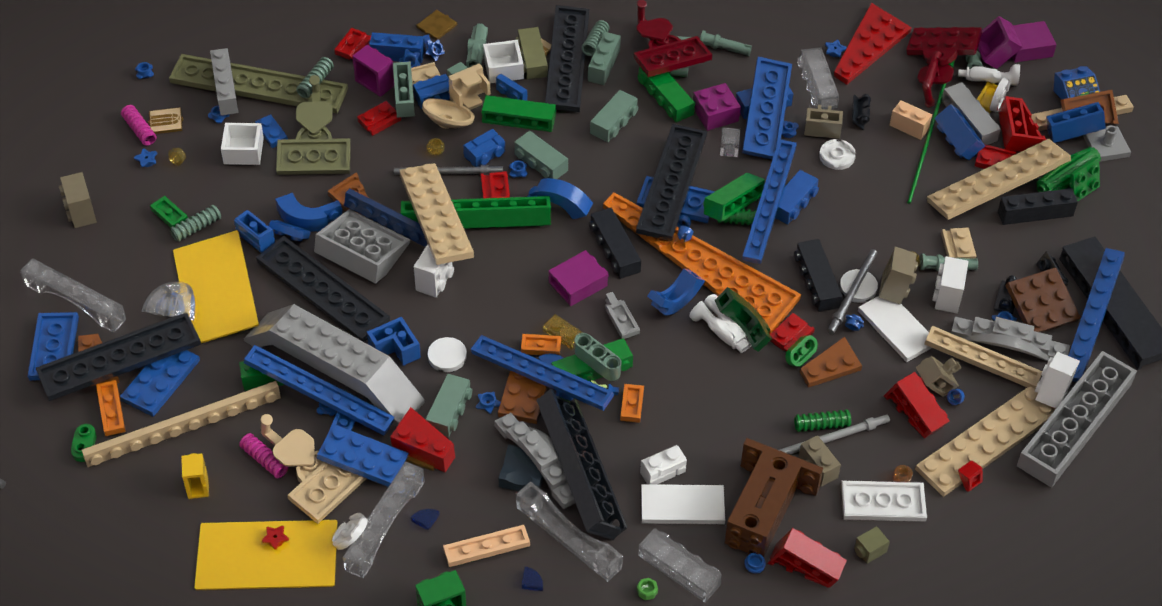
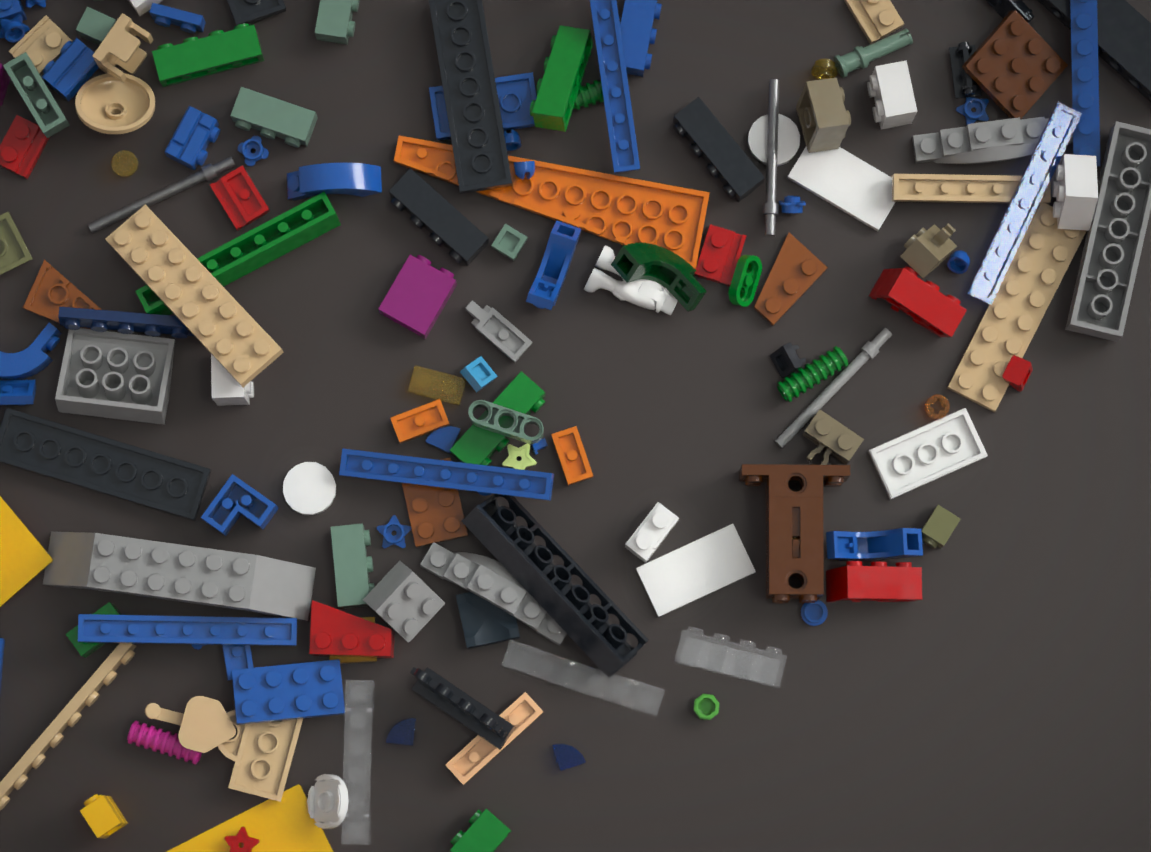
camera: 25 degrees left, 30 degrees up
(471, 433) = (404, 601): none -> light grey brick
(473, 510) = (462, 707): none -> black fence
(595, 331) = (478, 374): none -> dark azure plate
(654, 273) = (509, 242): none -> sand green plate
(809, 404) = (787, 360): none -> black tile
(835, 538) = (874, 545): none -> blue arch
(1015, 378) = (1024, 203): none -> clear blue tile

